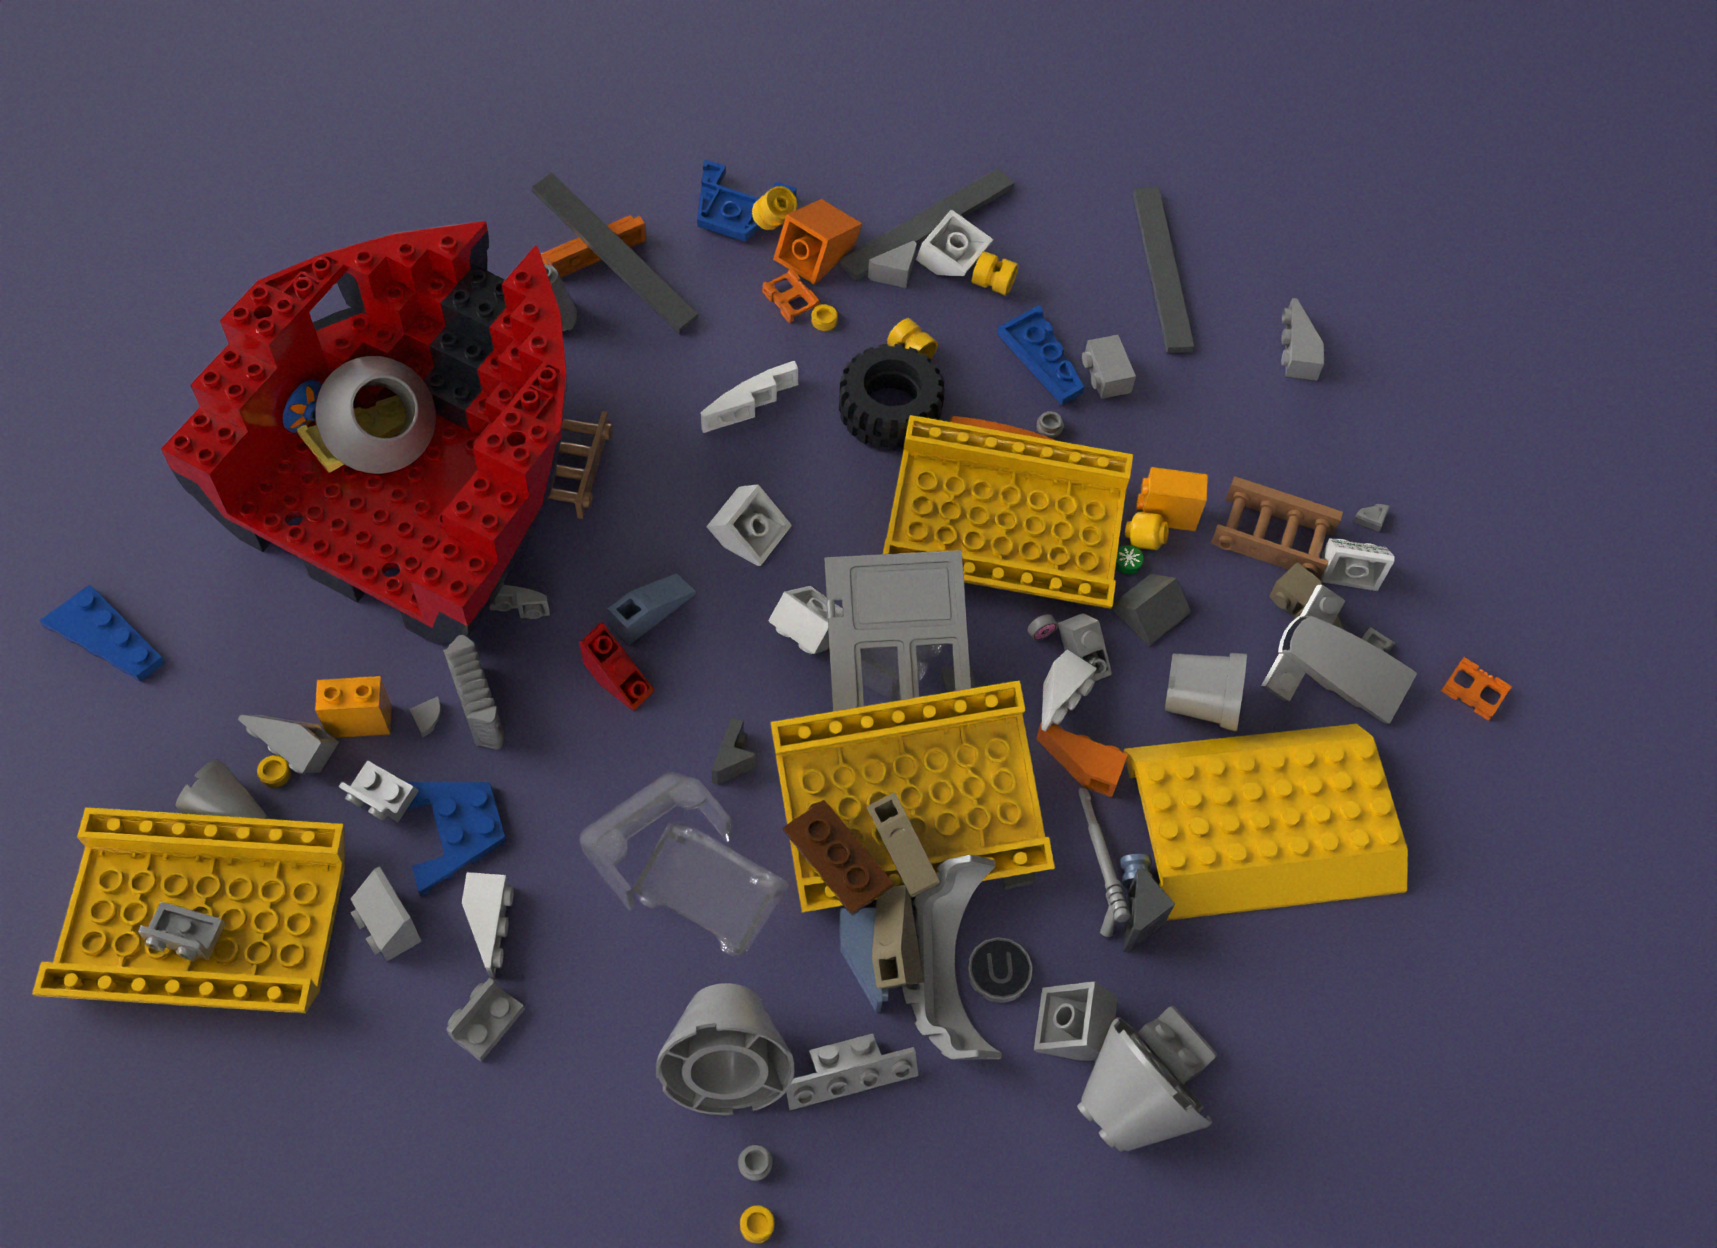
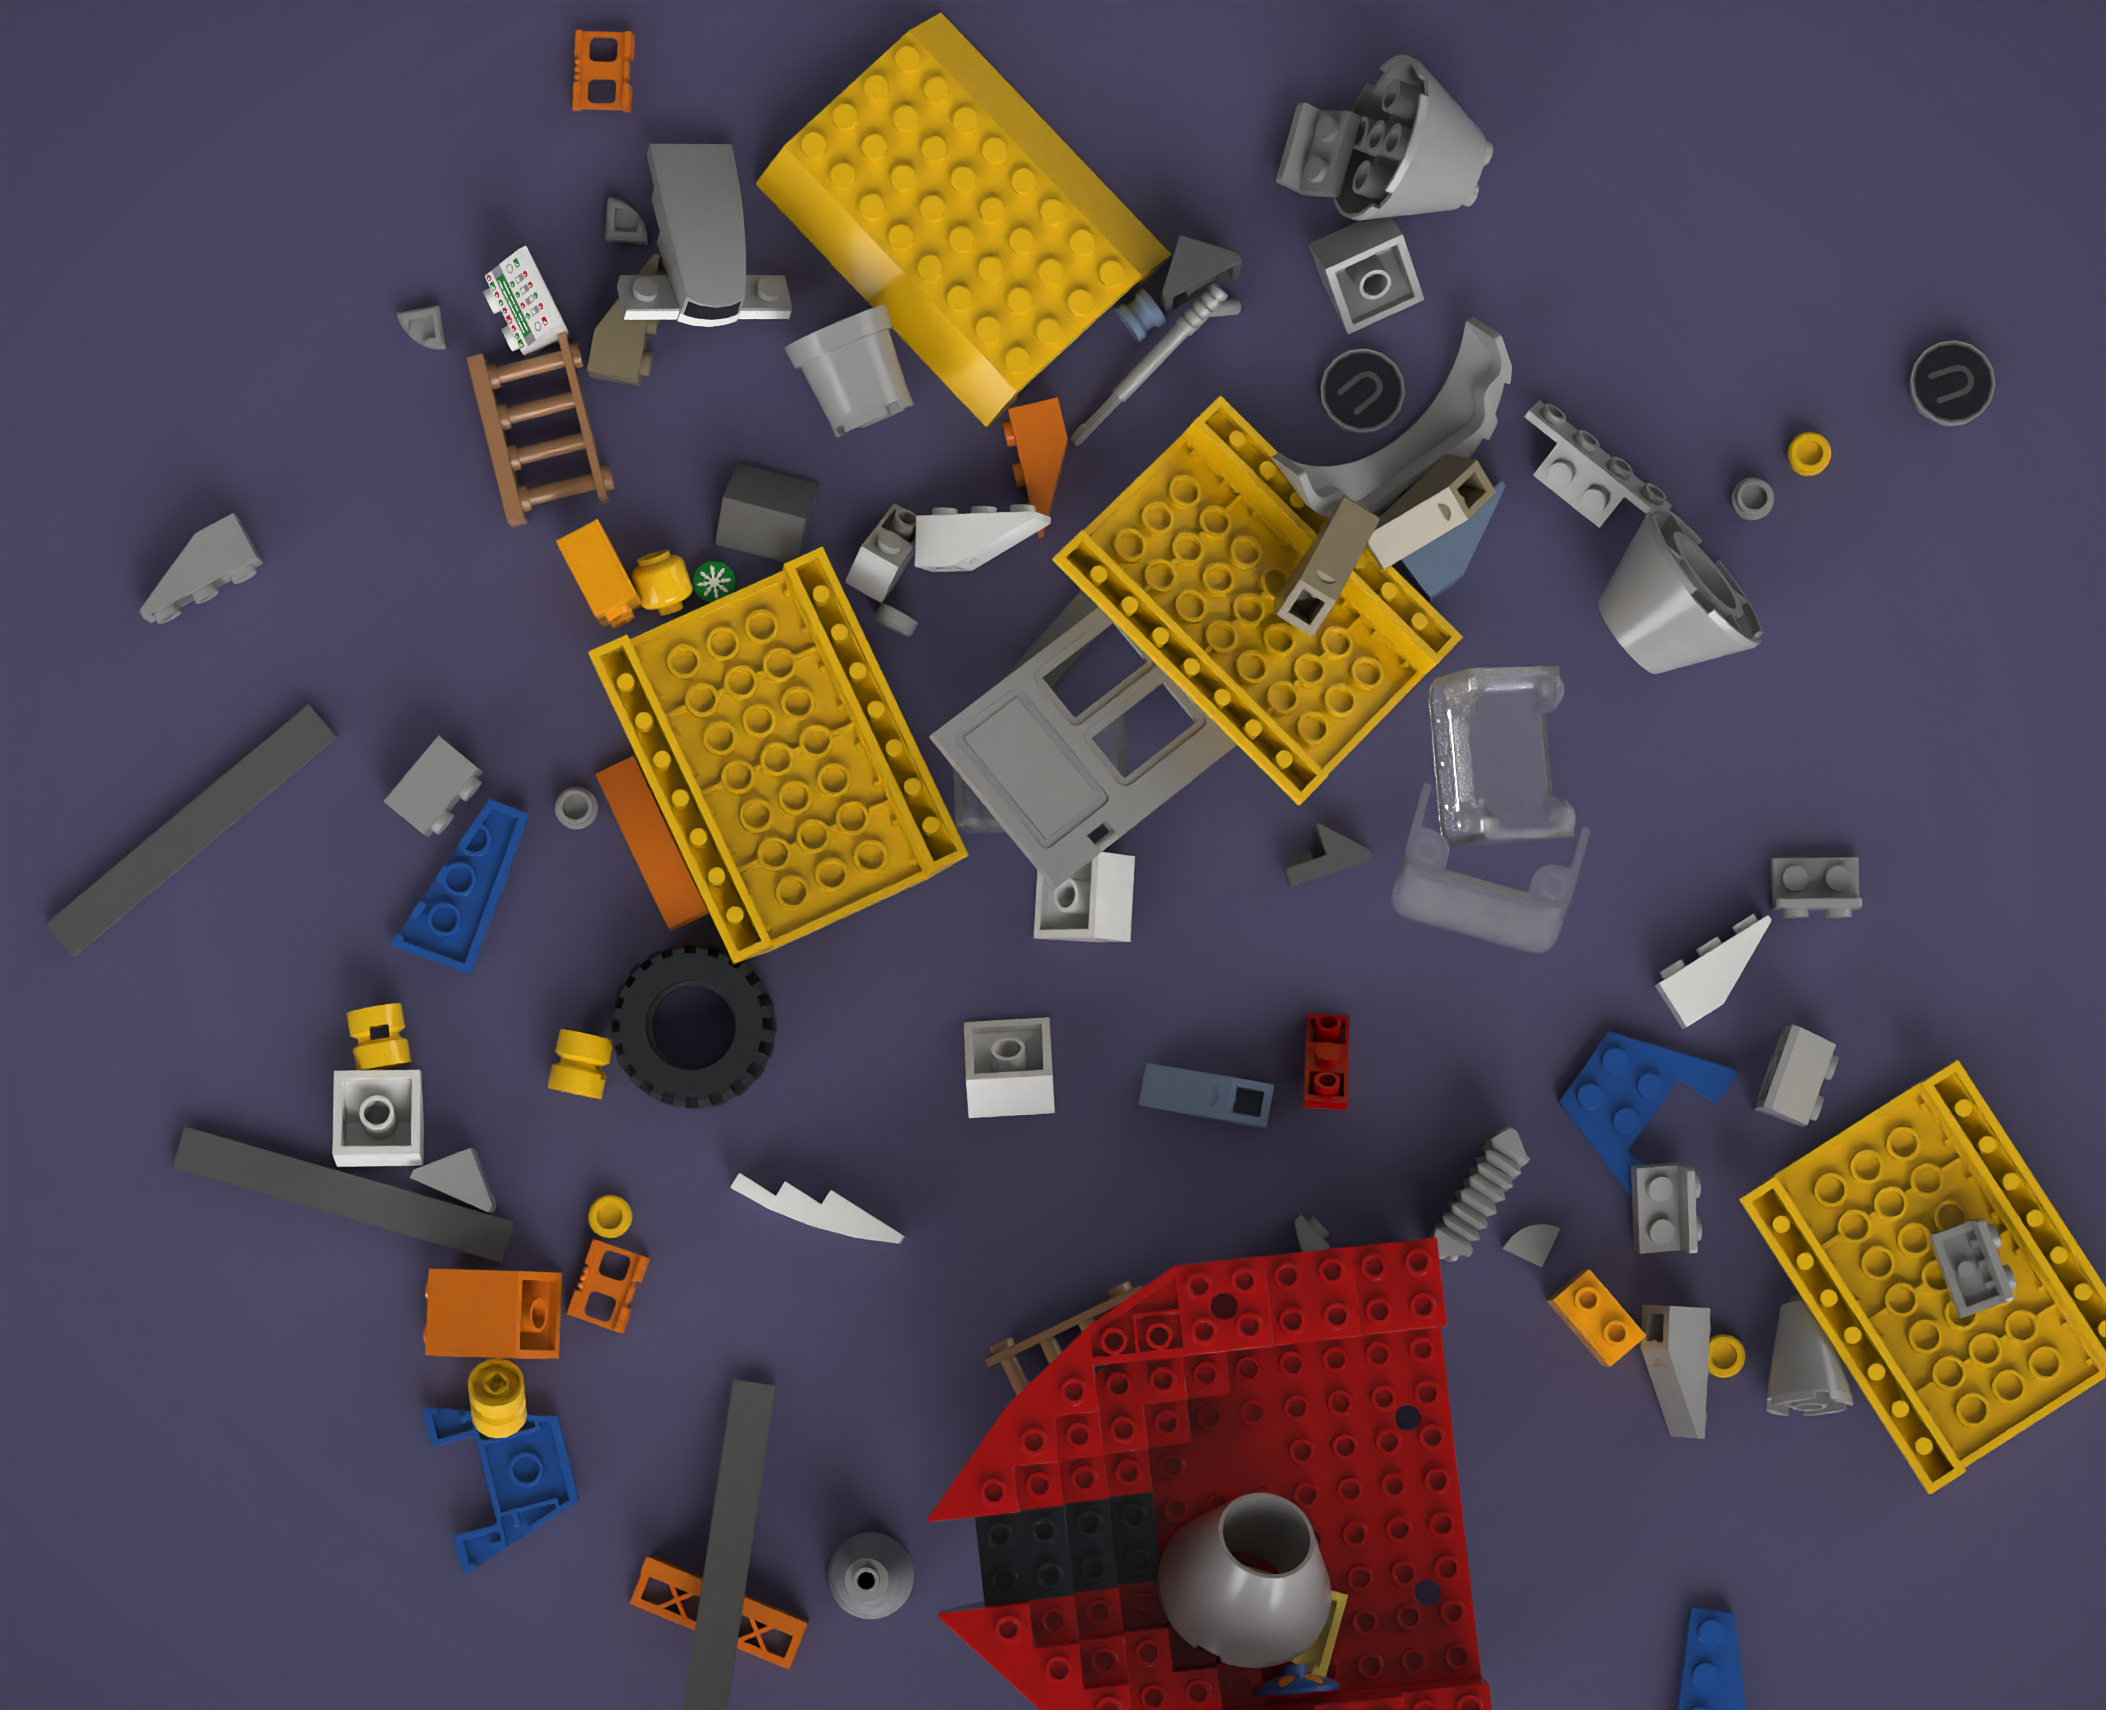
camera: 115 degrees left, 25 degrees up
(838, 857) = (1390, 628): reddish brown brick -> none

